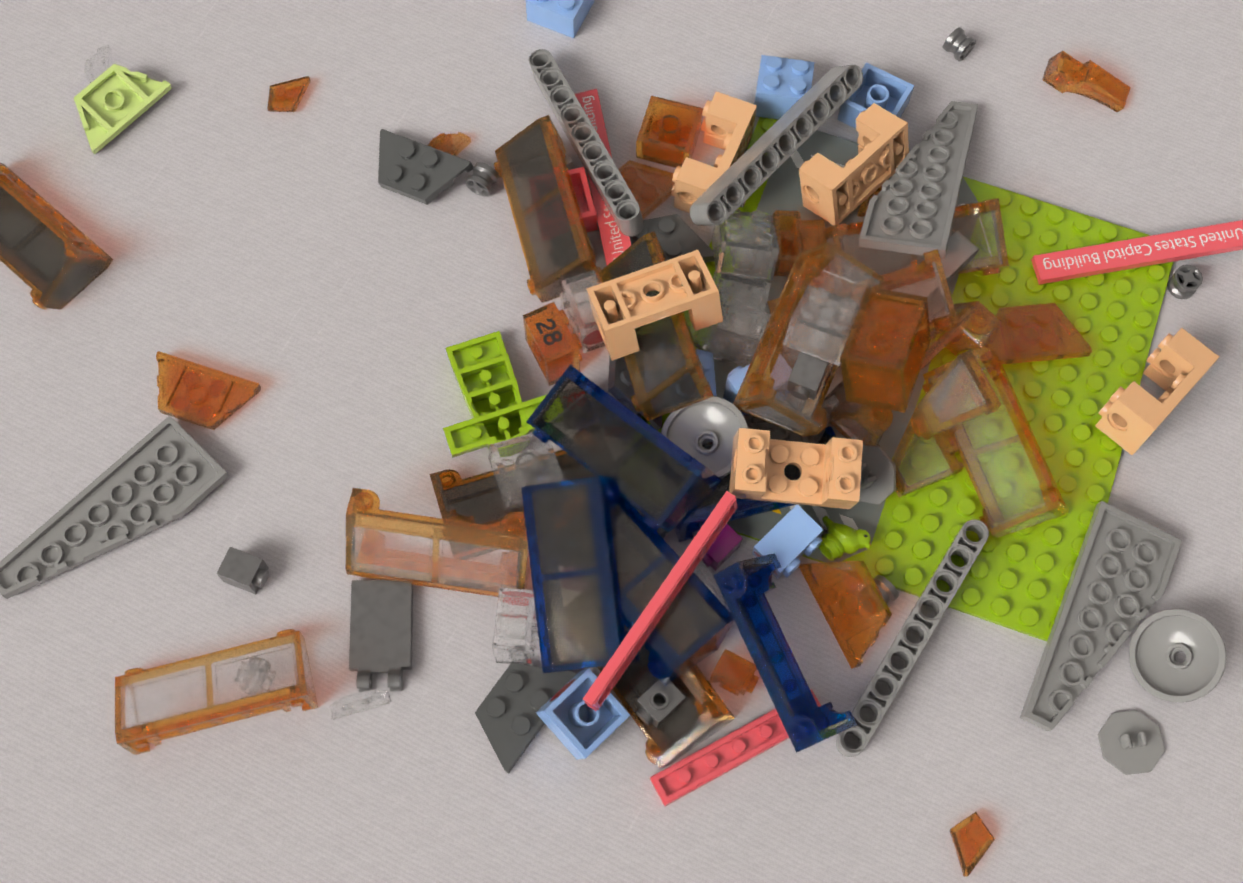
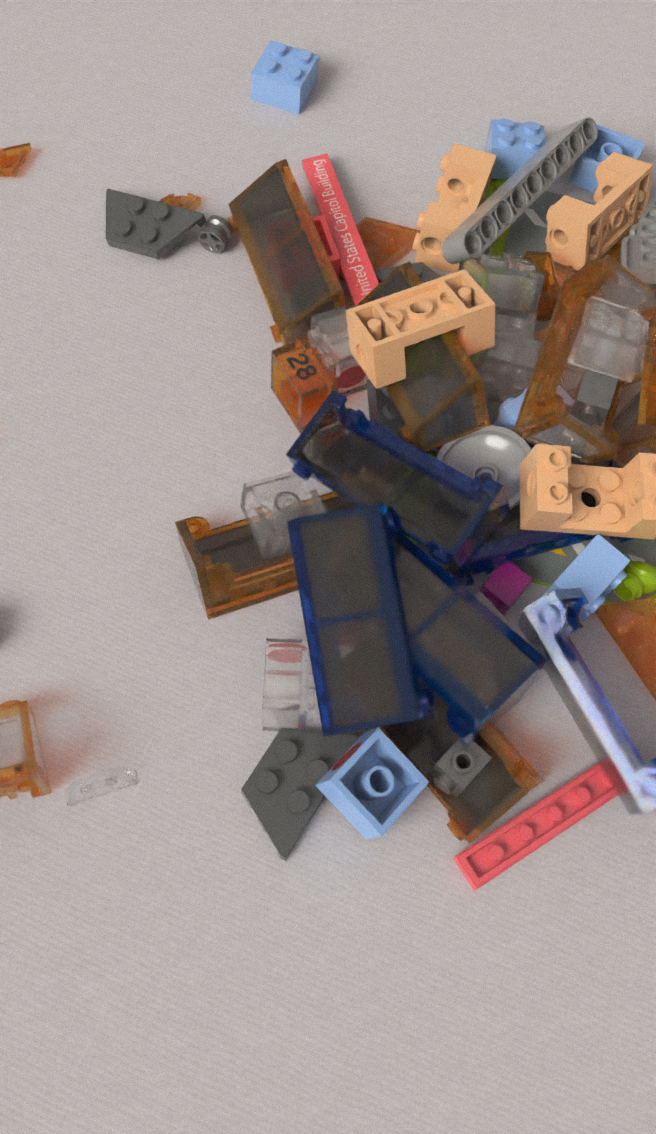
camera: 10 degrees left, 5 degrees down
(380, 631) = (124, 699): flat silver tile -> none
(435, 549) = (185, 599): windscreen -> none
(490, 395) = (236, 440): lime slope -> none
(586, 143) = (327, 197): light grey beam -> none
(660, 602) = (459, 647): coral tile -> none
(668, 132) = (404, 188): clear orange brick -> none
(735, 674) = (540, 729): clear orange window -> none

